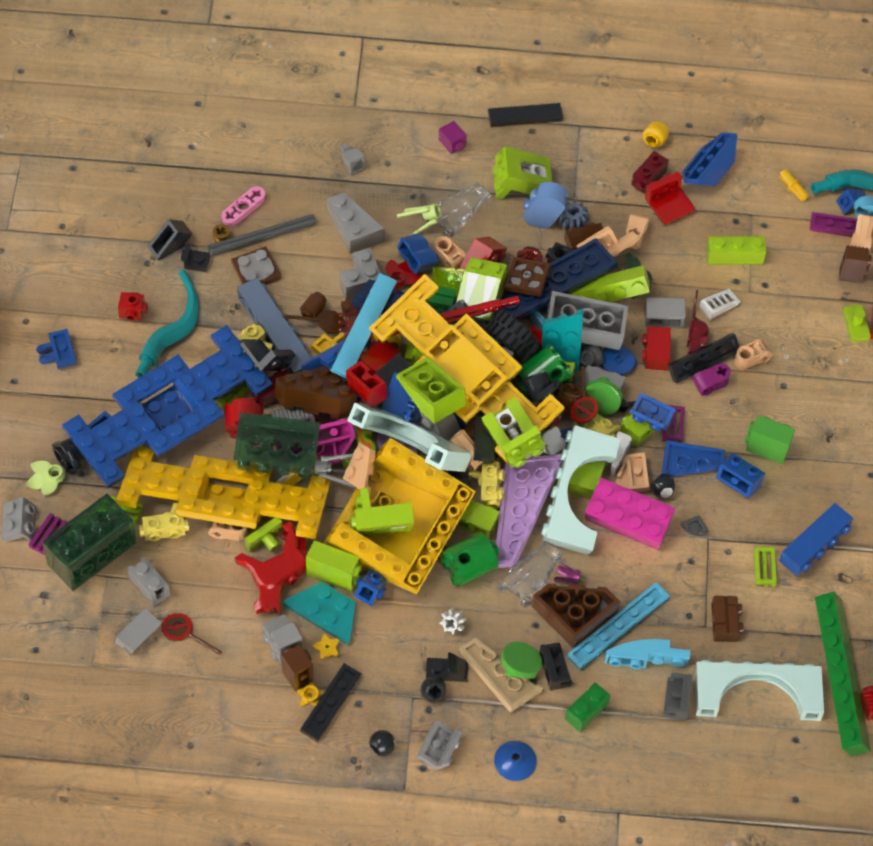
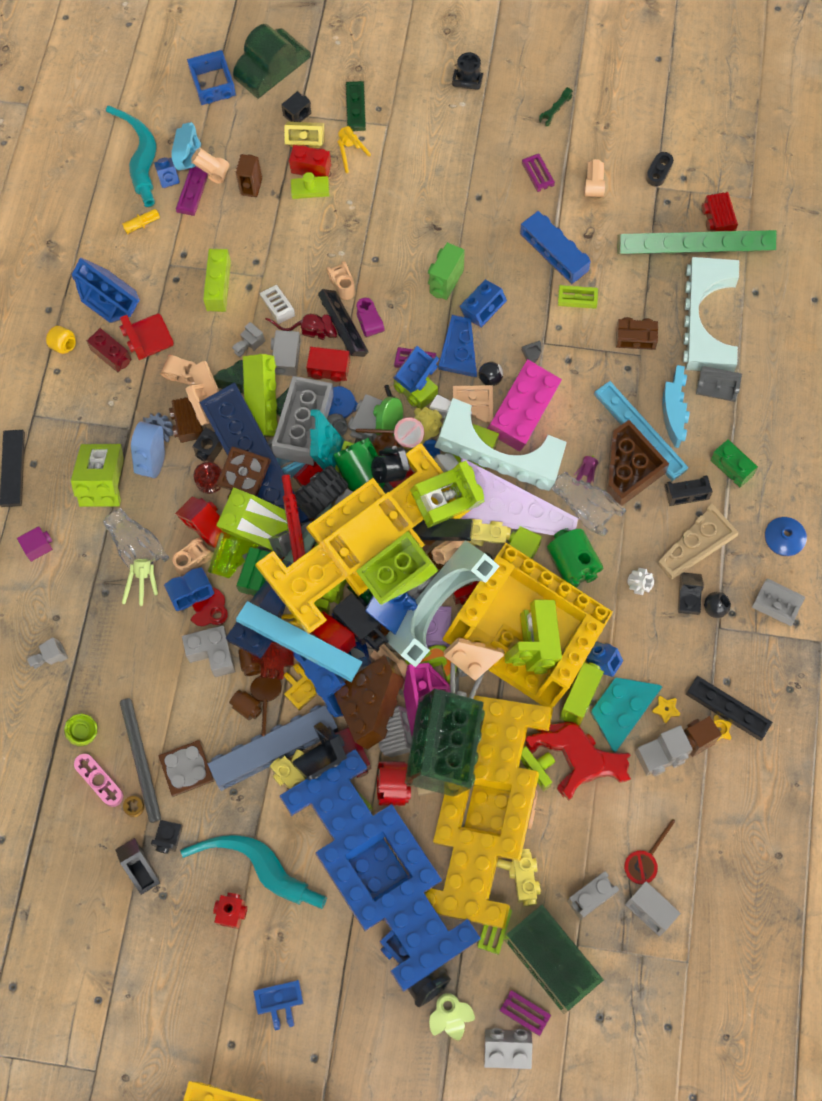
camera: 80 degrees left, 10 degrees up
(284, 187) = (80, 730): none -> lime hair
(353, 223) = (139, 656): light grey wedge -> none
(368, 387) = (380, 642): red brick -> none
(382, 742) = (776, 657): black piece -> none
(521, 660) = (685, 519): bright green tile -> none
(677, 284) = (250, 337): none -> light grey piece

